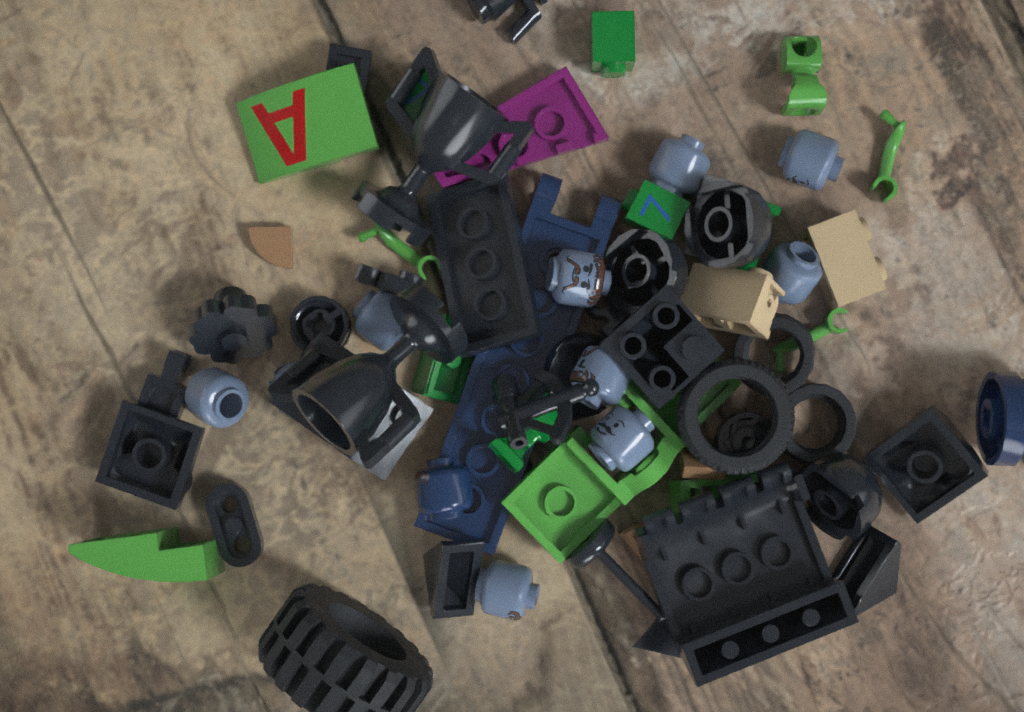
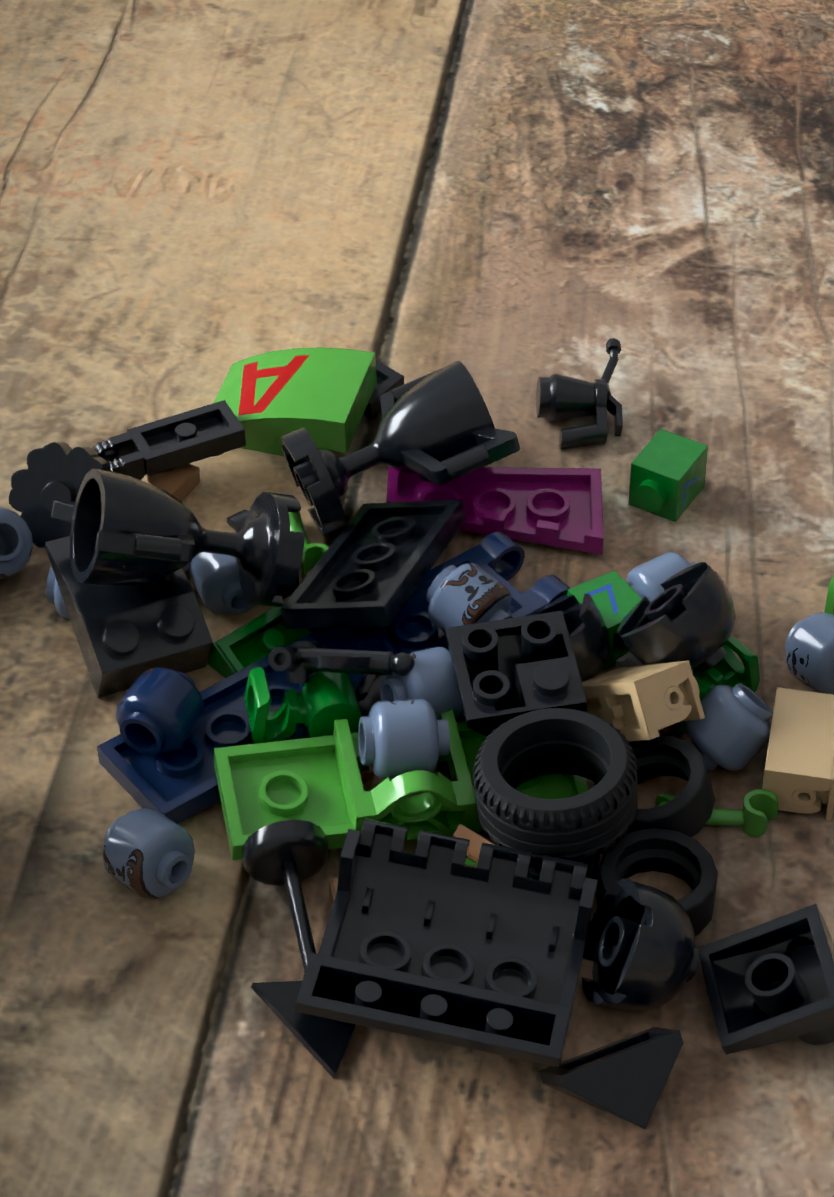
camera: 30 degrees right, 45 degrees down
(264, 225) = (173, 441): none -> black hinge
(452, 577) = (109, 791): black slope -> none

